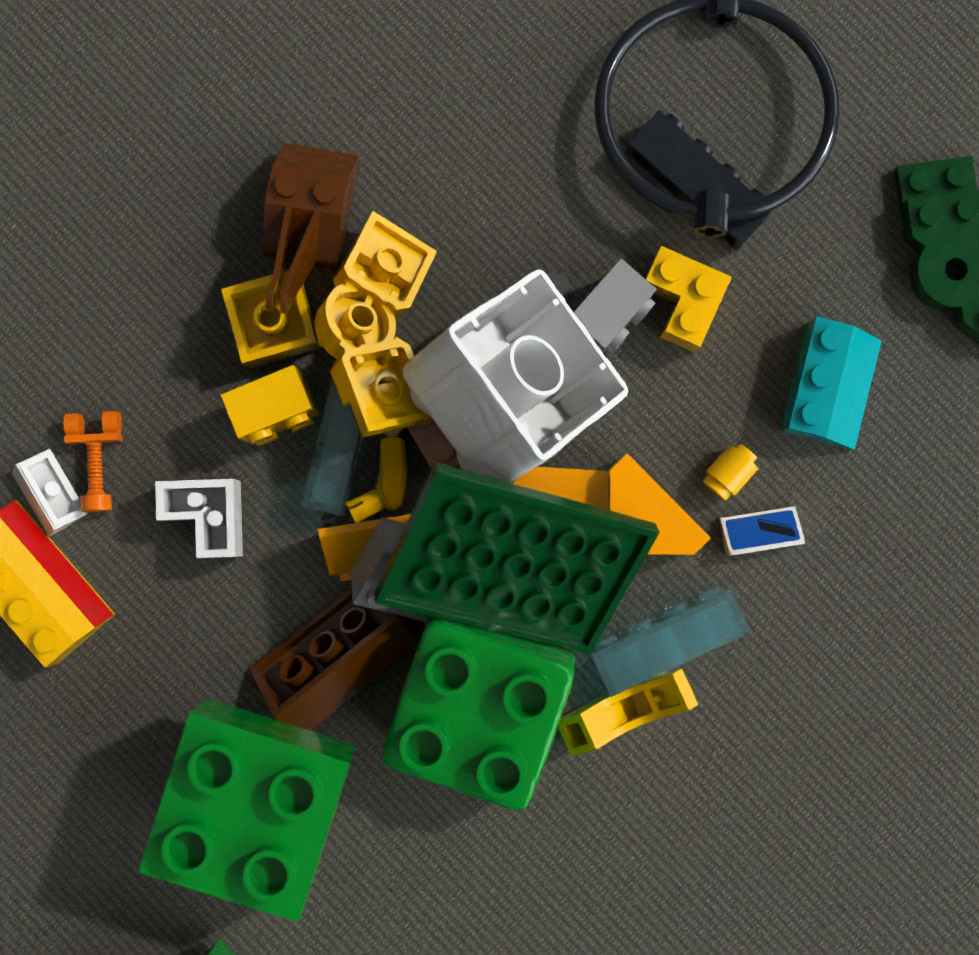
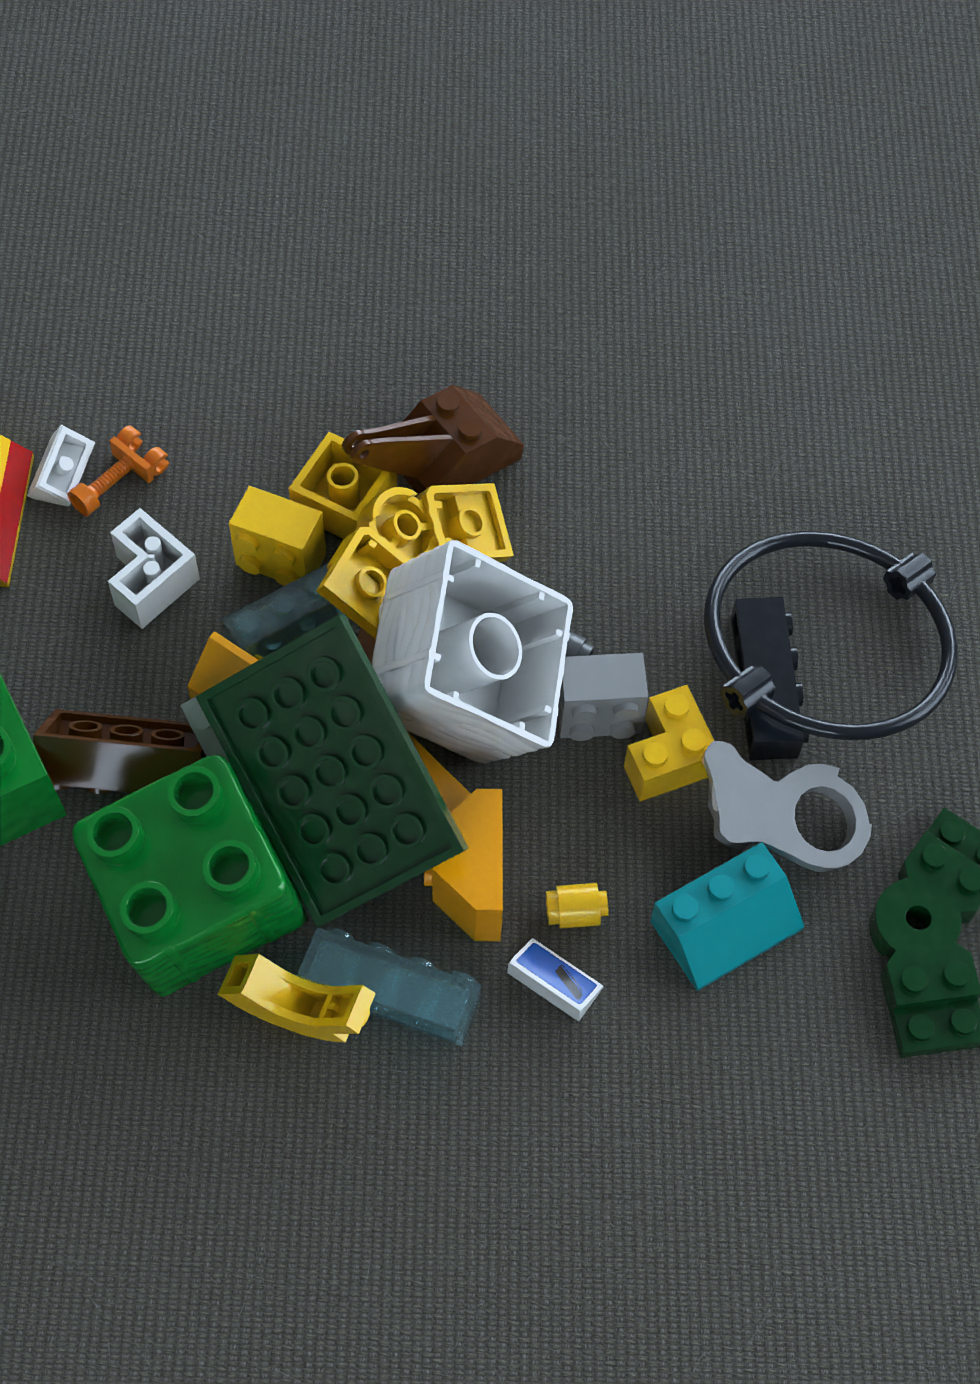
camera: 40 degrees right, 25 degrees down
(792, 293) = (757, 809): none -> light grey animal

